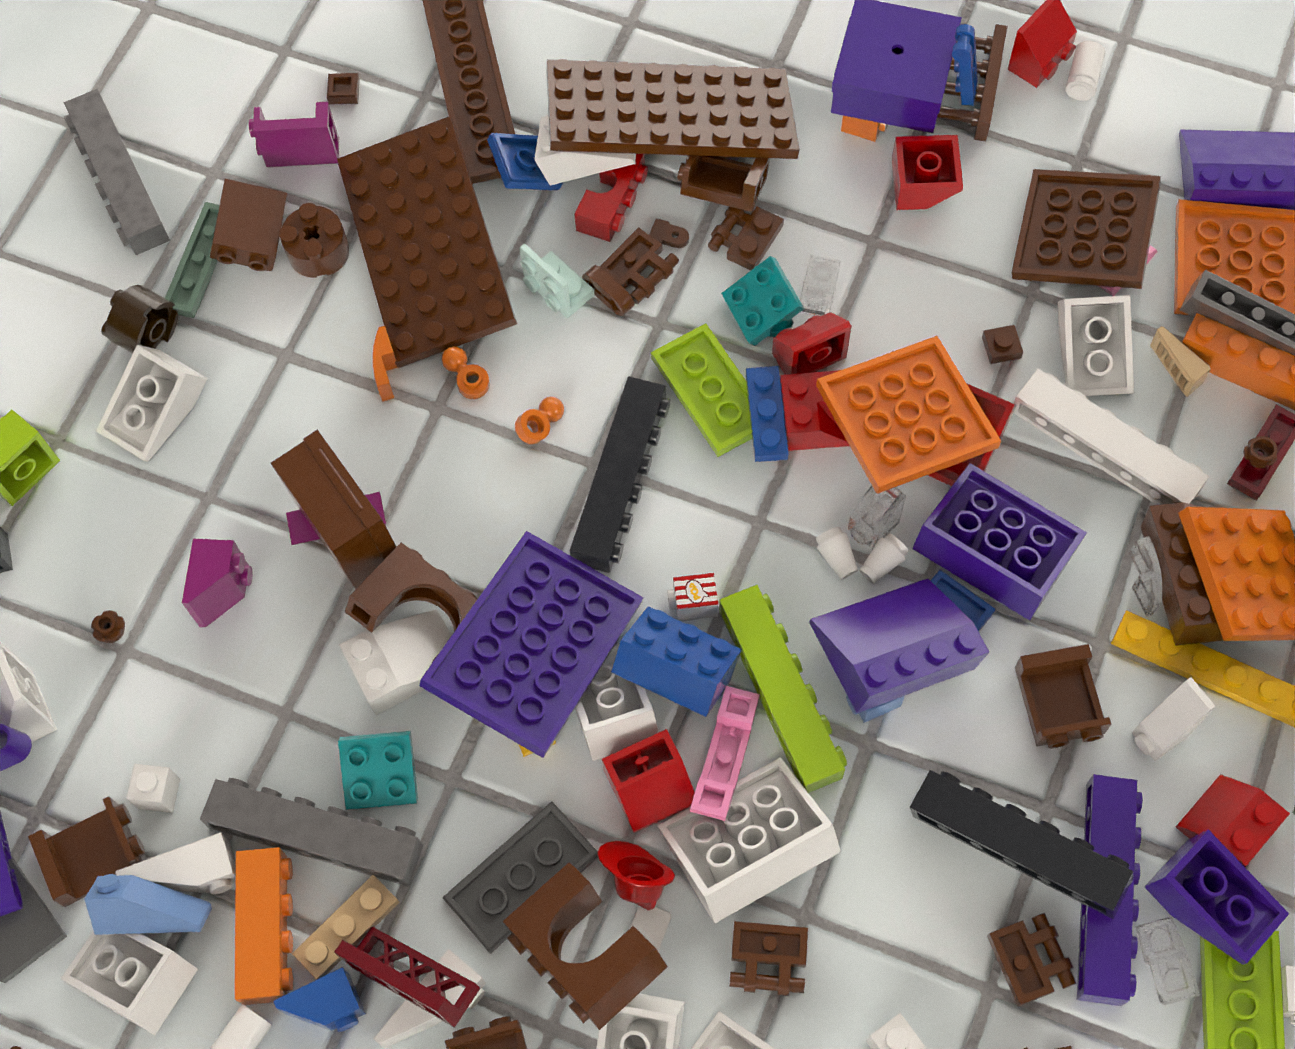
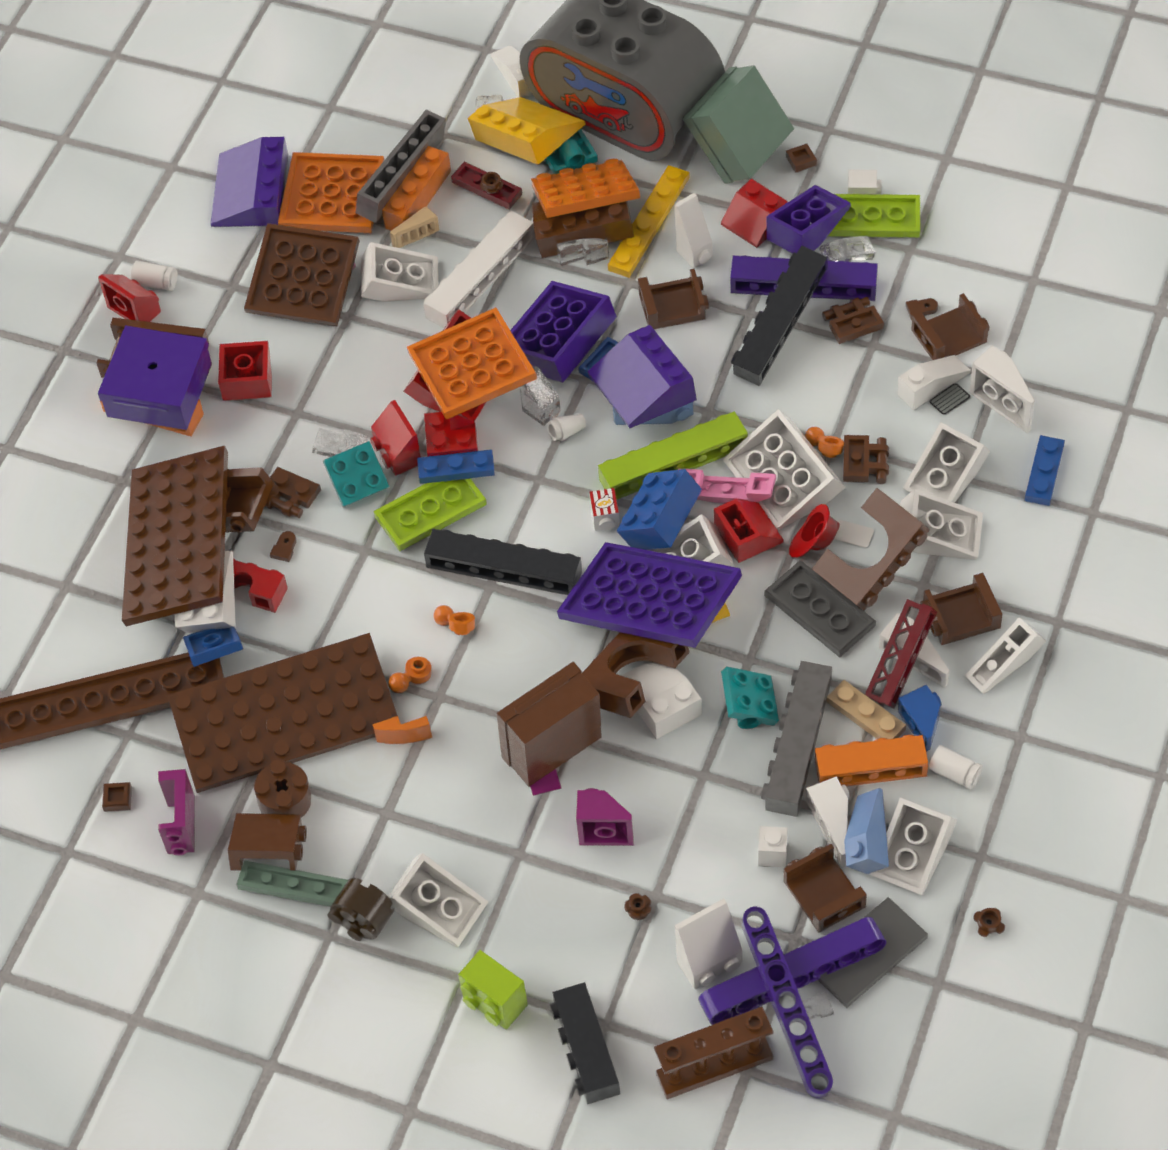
camera: 90 degrees left, 10 degrees down
(116, 173) = (196, 965): flat silver brick -> none
(555, 281) = (331, 615): light aqua bracket -> none
(609, 290) = (339, 579): reddish brown beam -> none
(633, 257) = (311, 567): reddish brown plate -> none
(814, 889) = (827, 445): none -> orange plate
(883, 558) = (571, 399): white cone -> none
(965, 63) = (161, 321): blue plate -> none
(1002, 344) = (394, 332): reddish brown plate -> none

